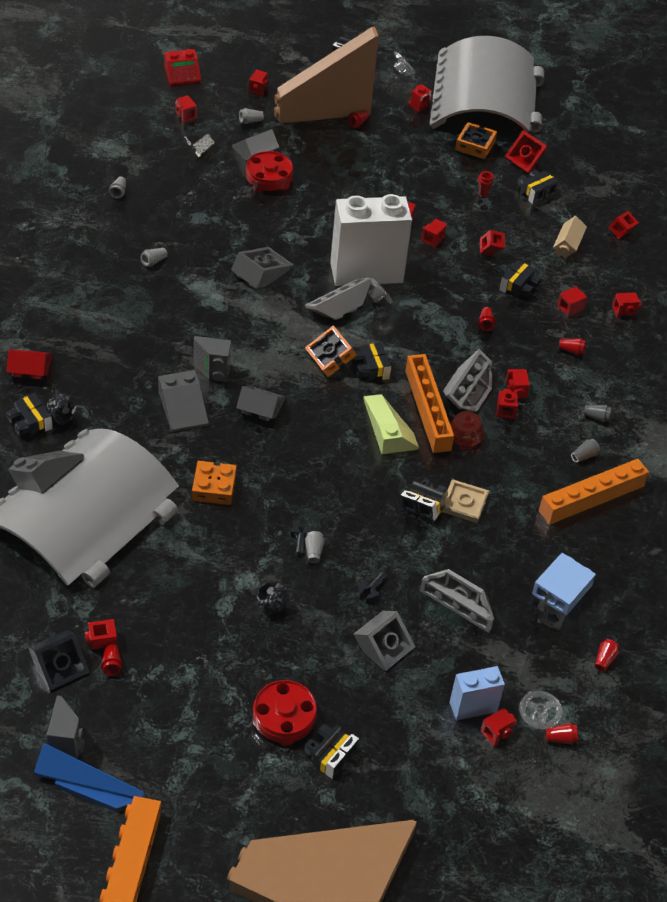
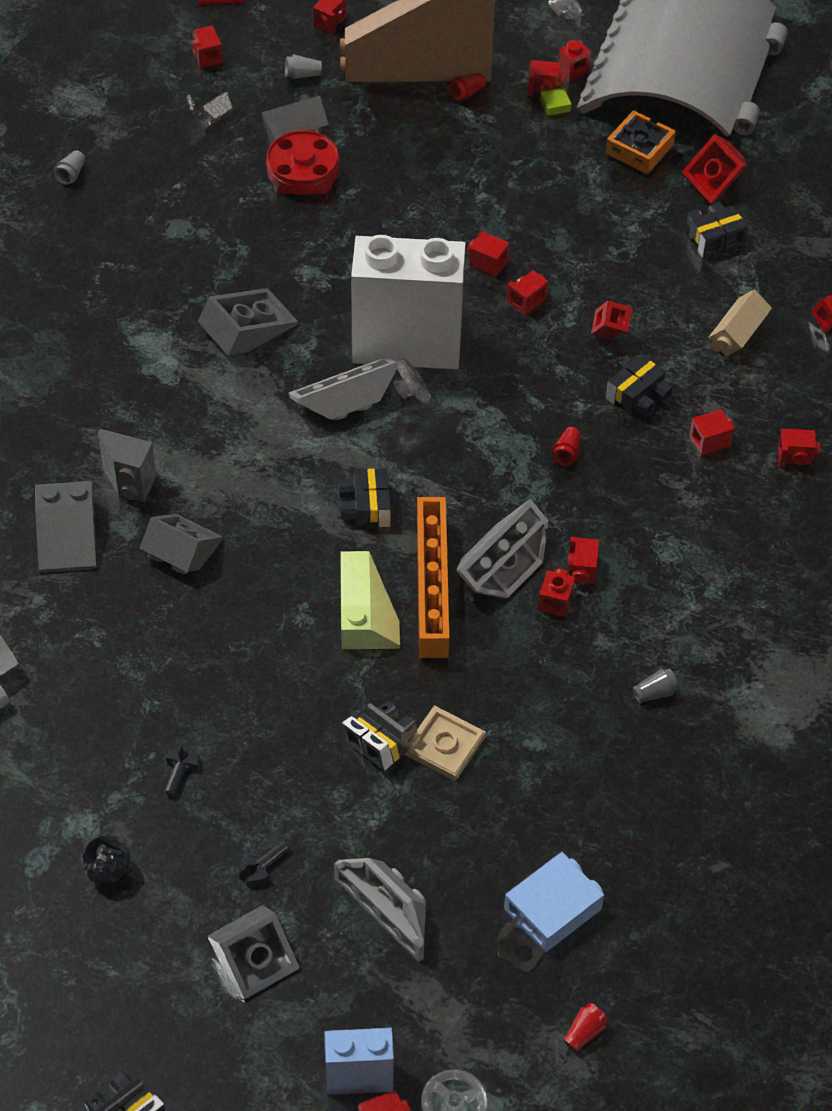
camera: 15 degrees right, 5 degrees up
(153, 256) = (88, 286): light grey cone -> none
(214, 483) = (75, 664): orange piece -> none
(284, 711) = (72, 1042): red piece -> none
(314, 546) = (193, 786): light grey cone -> none
(330, 351) = (306, 473): piece -> none
(405, 109) = (544, 77): none -> red brick
(415, 123) = (555, 101): none -> lime tile
(467, 429) = (478, 628): clear red cone -> none
(485, 182) = (631, 215): red cone -> none
(574, 346) = (693, 508): red cone -> none
(593, 491) = (647, 755): orange brick -> none
(598, 412) = (698, 625): dark grey cone -> none

